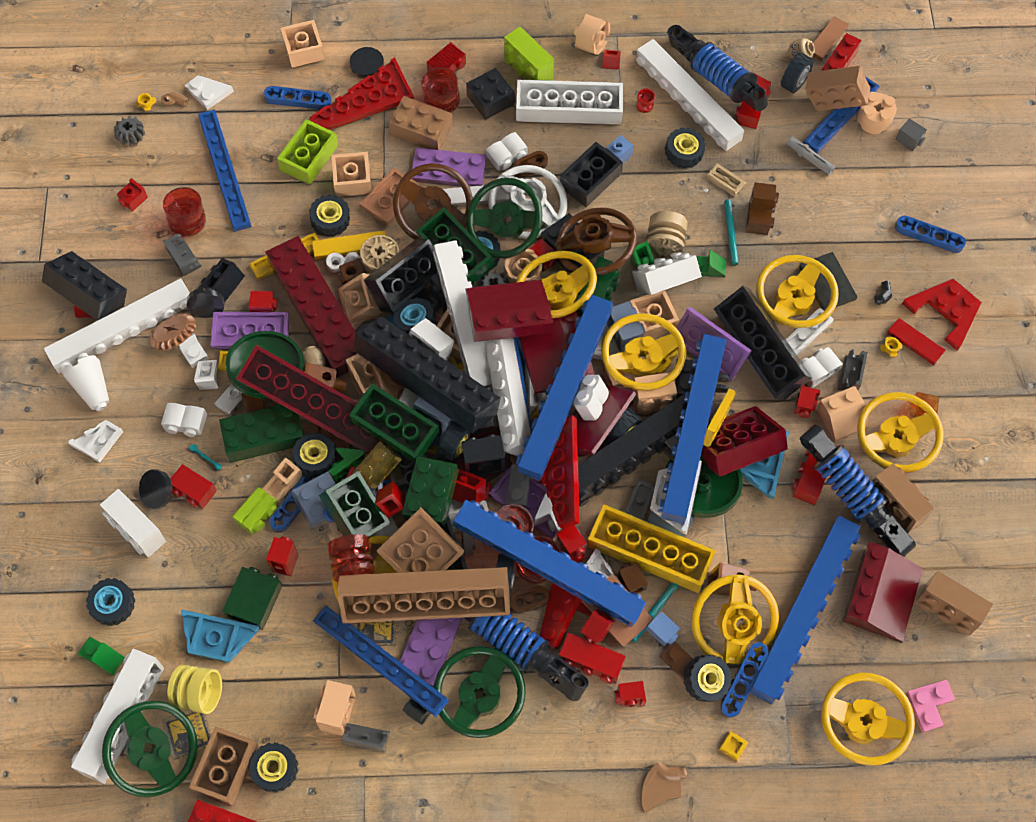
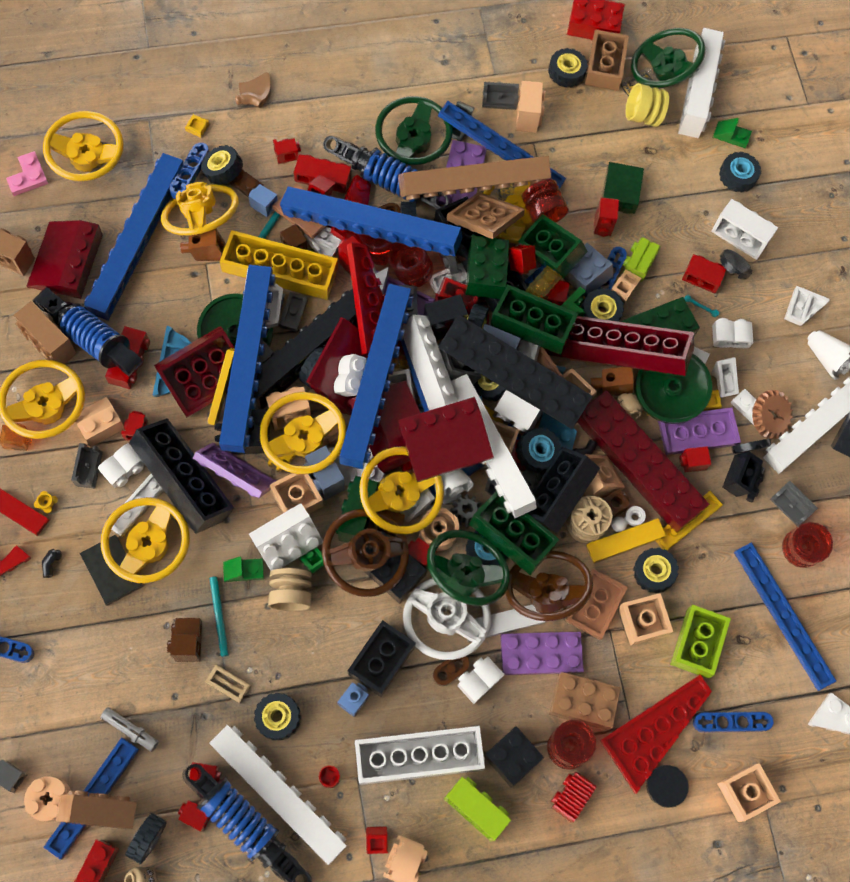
camera: 165 degrees right, 5 degrees up
(215, 637) = (646, 154): dark azure wing -> none

